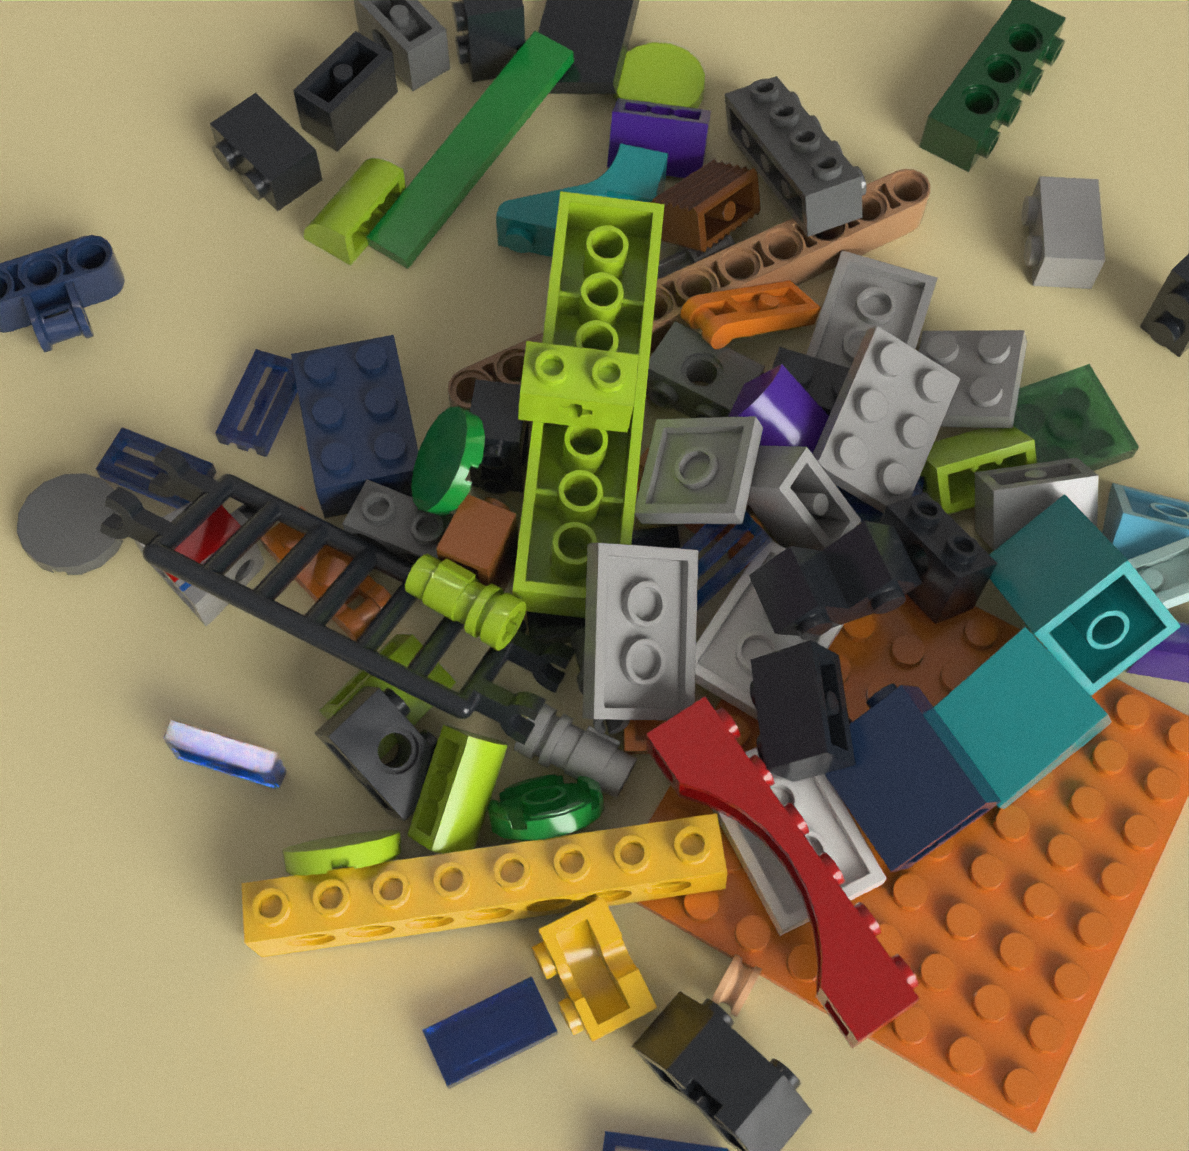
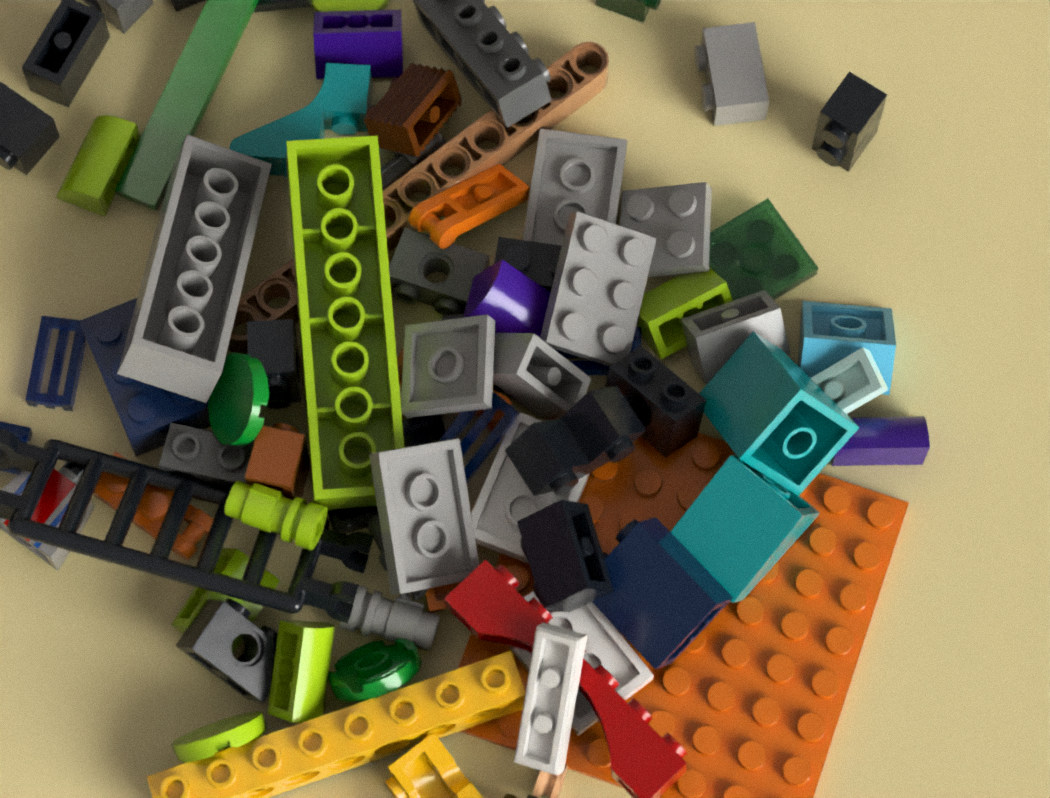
camera: 10 degrees left, 5 degrees up
(225, 754) = (104, 676): clear blue tile -> none
(426, 320) = (195, 270): none -> light grey brick
(577, 386) = (335, 320): lime brick -> none
(756, 882) = (550, 698): none -> white tile

